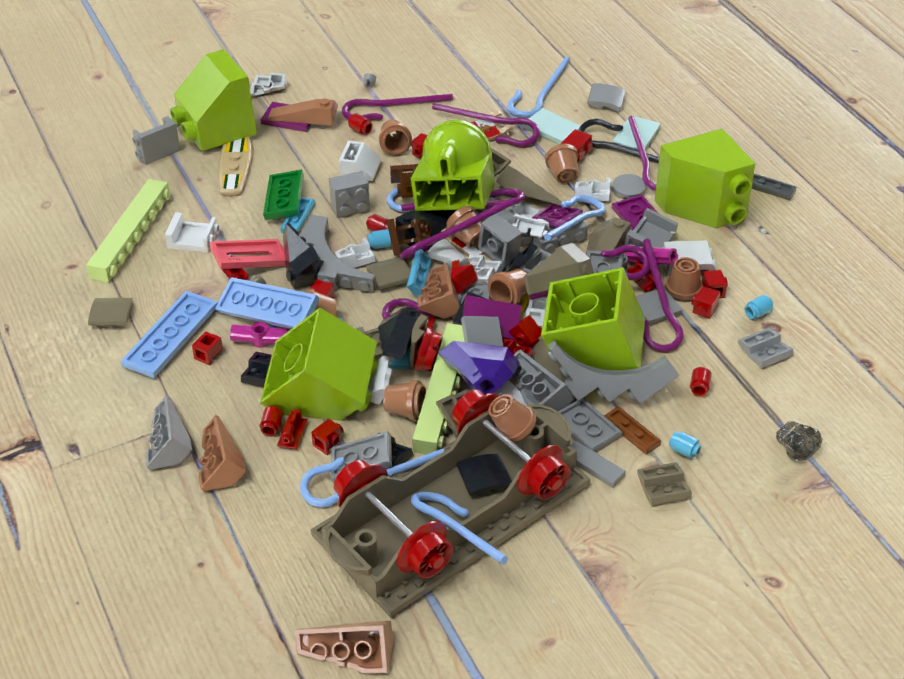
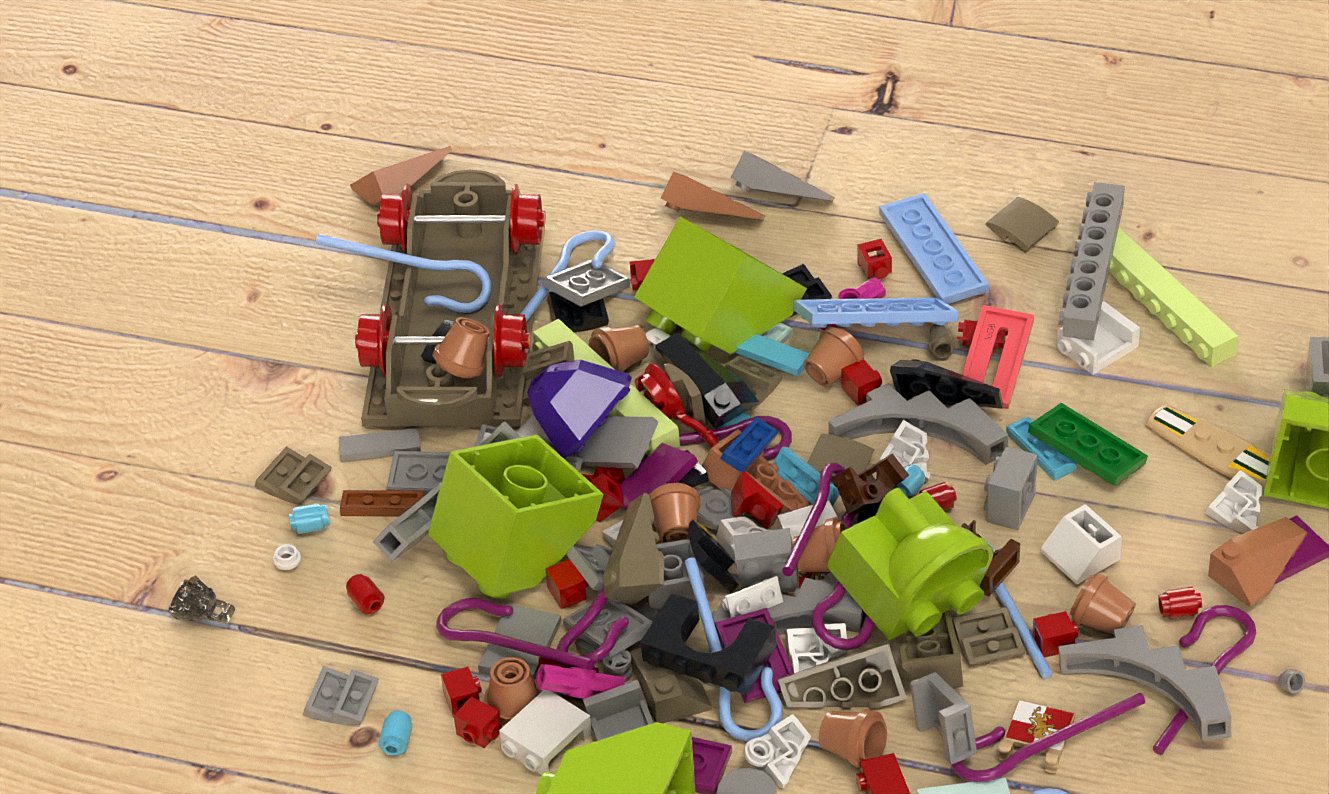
camera: 135 degrees right, 0 degrees up
(136, 244) = (1092, 262): none -> light grey brick
(270, 140) = (1237, 504): none -> white slope
(409, 103) = (1163, 669): none -> light grey arch
(427, 292) = (749, 445): none -> blue tile
(524, 128) = (942, 707): none -> light grey panel
(583, 200) = (729, 668): none -> black arch
(608, 186) = (761, 745): none -> white plate
(719, 436) = (286, 557): none -> white plate

